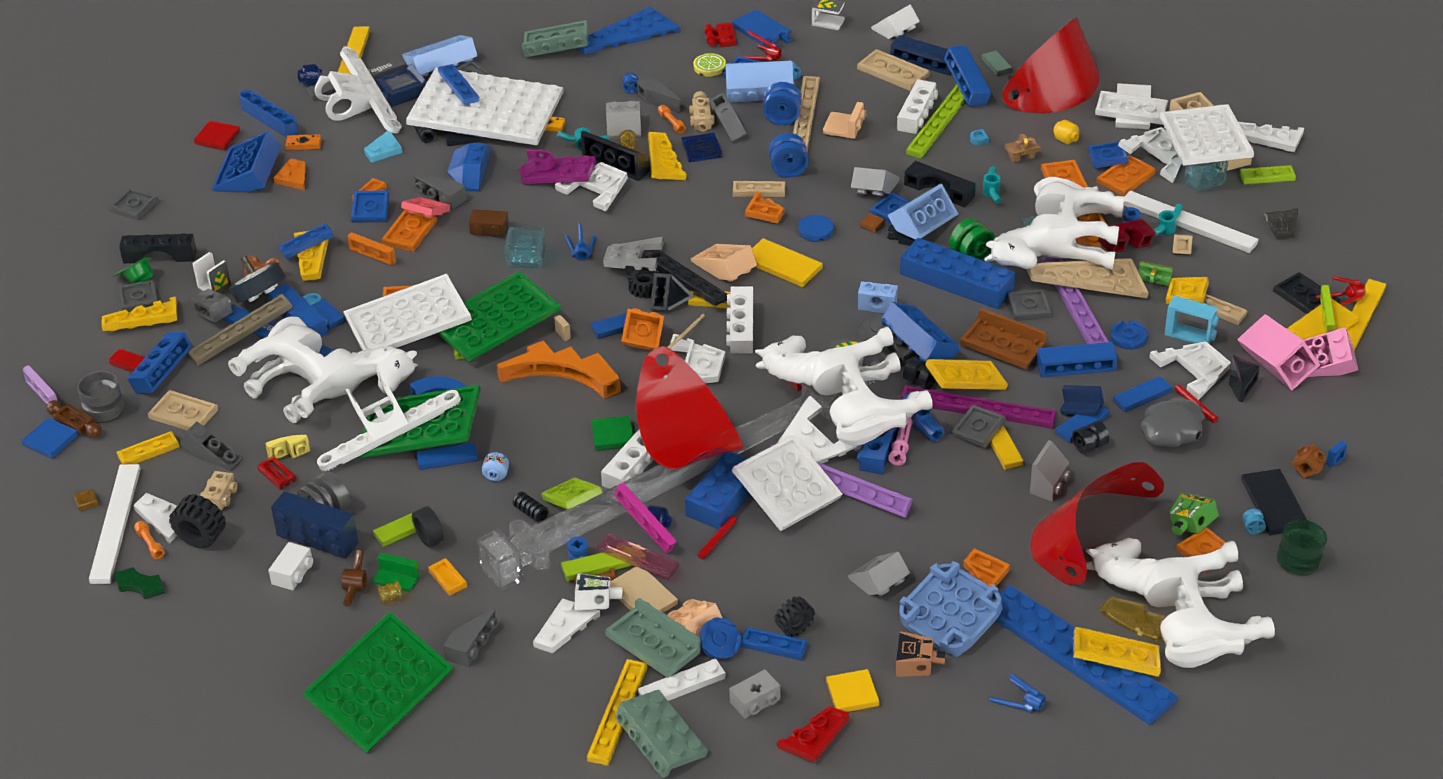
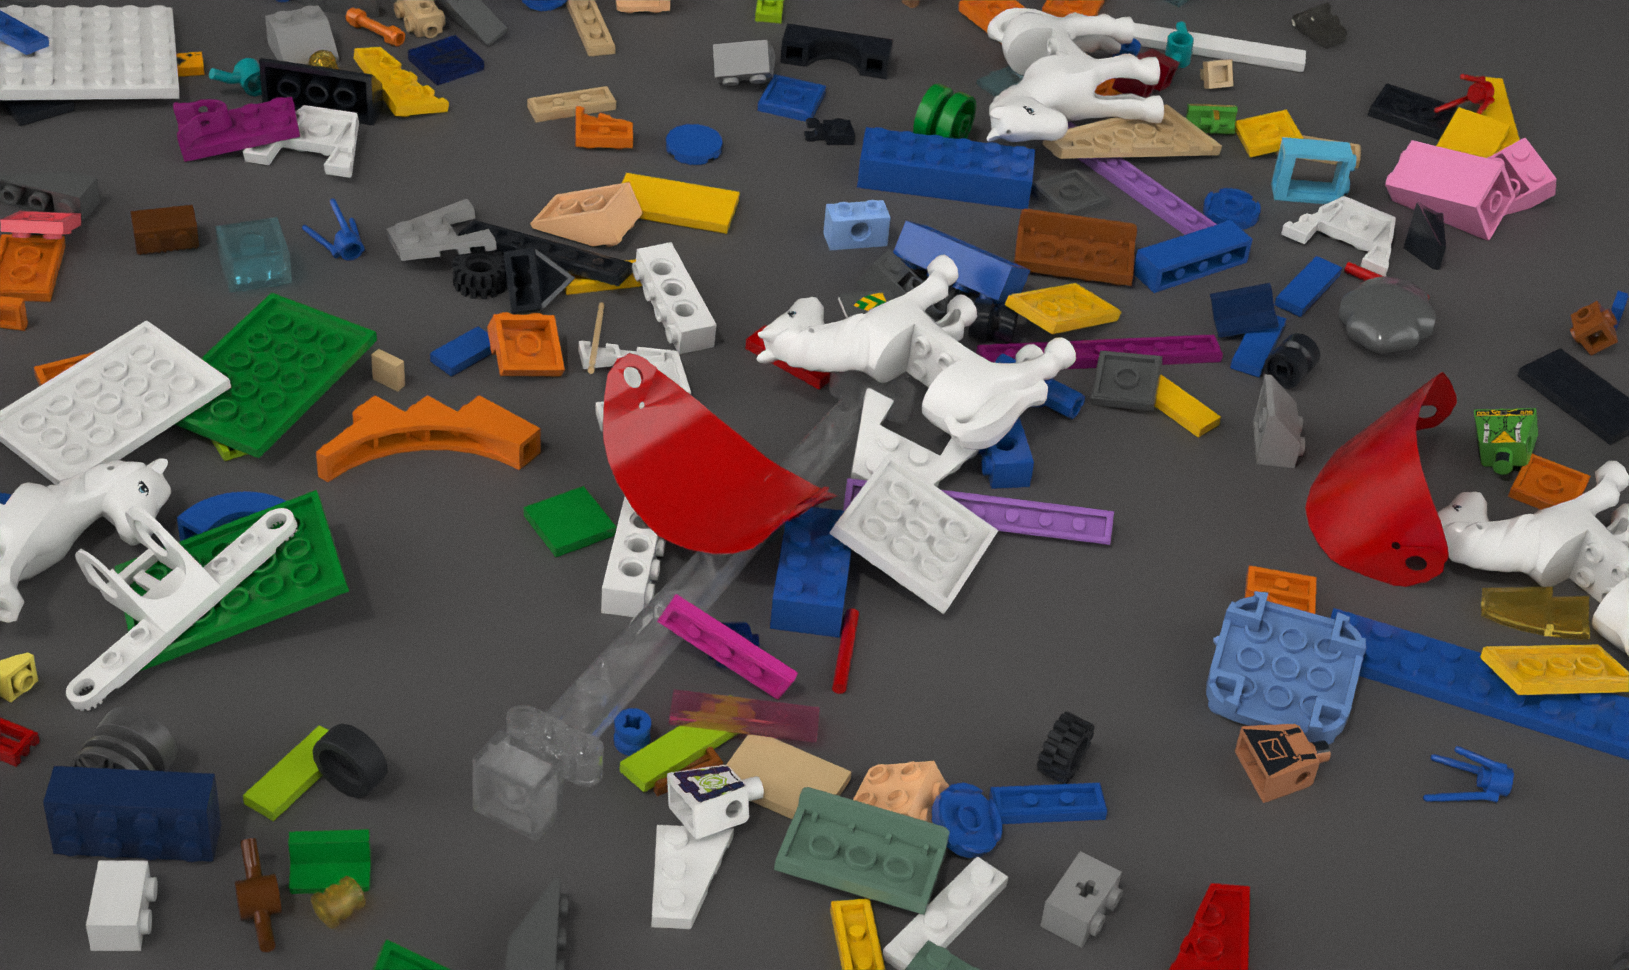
camera: 30 degrees left, 0 degrees up
(447, 456) = (303, 628): blue tile -> none
(447, 577) = (426, 843): light orange tile -> none
(469, 165) = (79, 145): blue wedge -> none
(495, 465) = (404, 623): light blue head -> none
(530, 507) = (507, 679): black piece -> none
(571, 493) = (572, 637): lime tile -> none
(788, 155) = (597, 45): blue wheel -> none
(852, 691) = (1221, 847): yellow tile -> none
(872, 222) = (772, 122): dark orange tile -> none
(880, 574) = (1138, 641): light grey slope -> none
(900, 445) = (1037, 438): bright pink pin -> none
(924, 213) = (846, 93): light blue slope -> none
(991, 185) = (910, 41): teal piece -> none
(1254, 521) = (1586, 429): dark azure wheel -> none
(1327, 309) = (1474, 122): lime tile -> none

